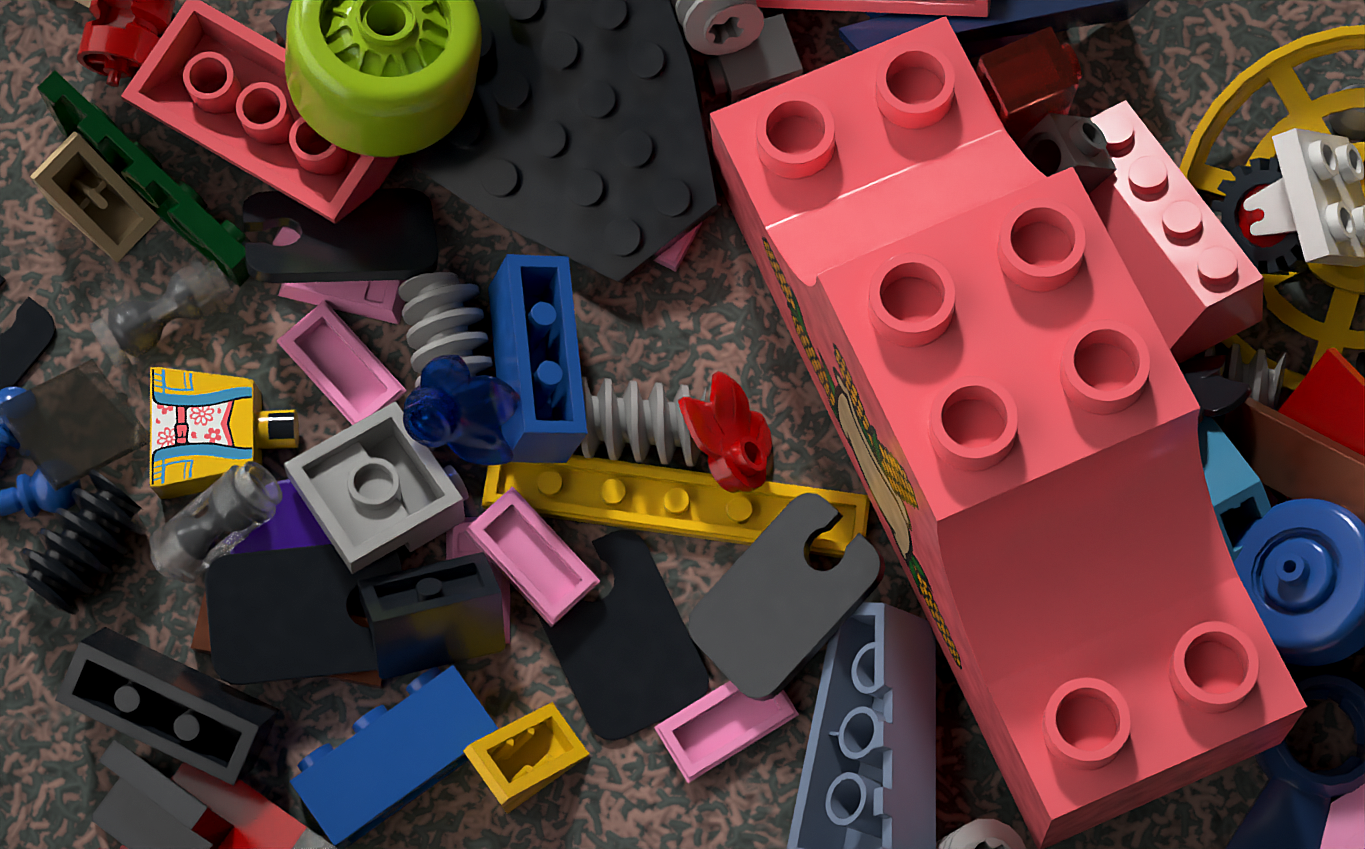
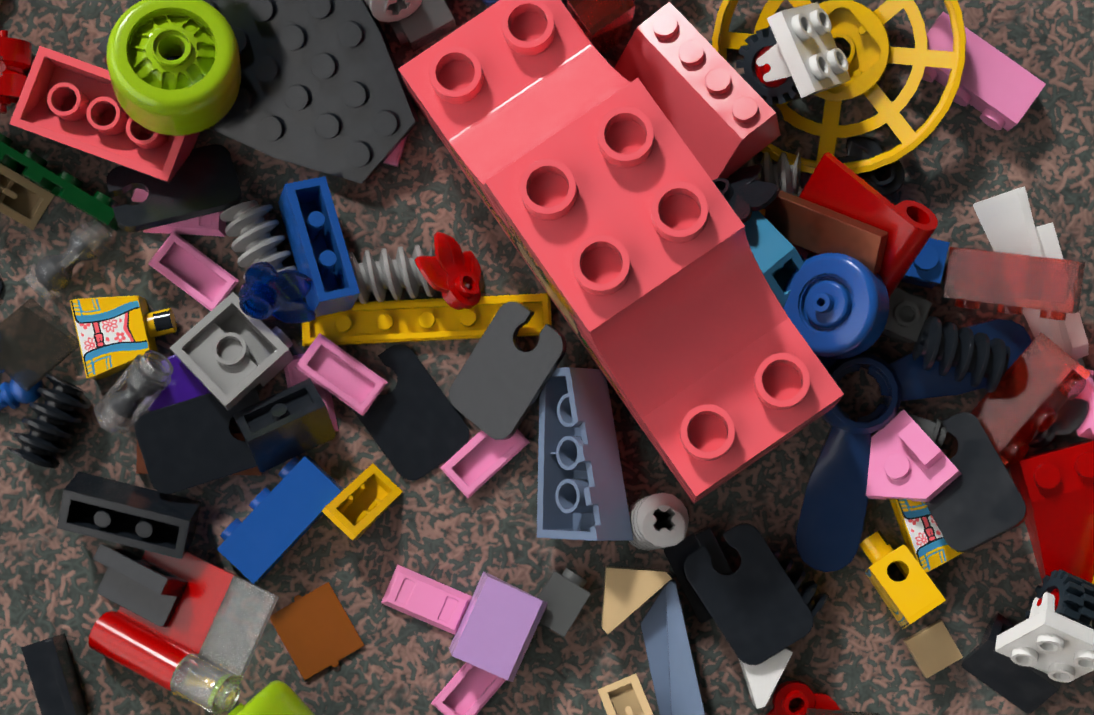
camera: 10 degrees left, 10 degrees up
(1069, 142) = (635, 50): dark grey brick -> none

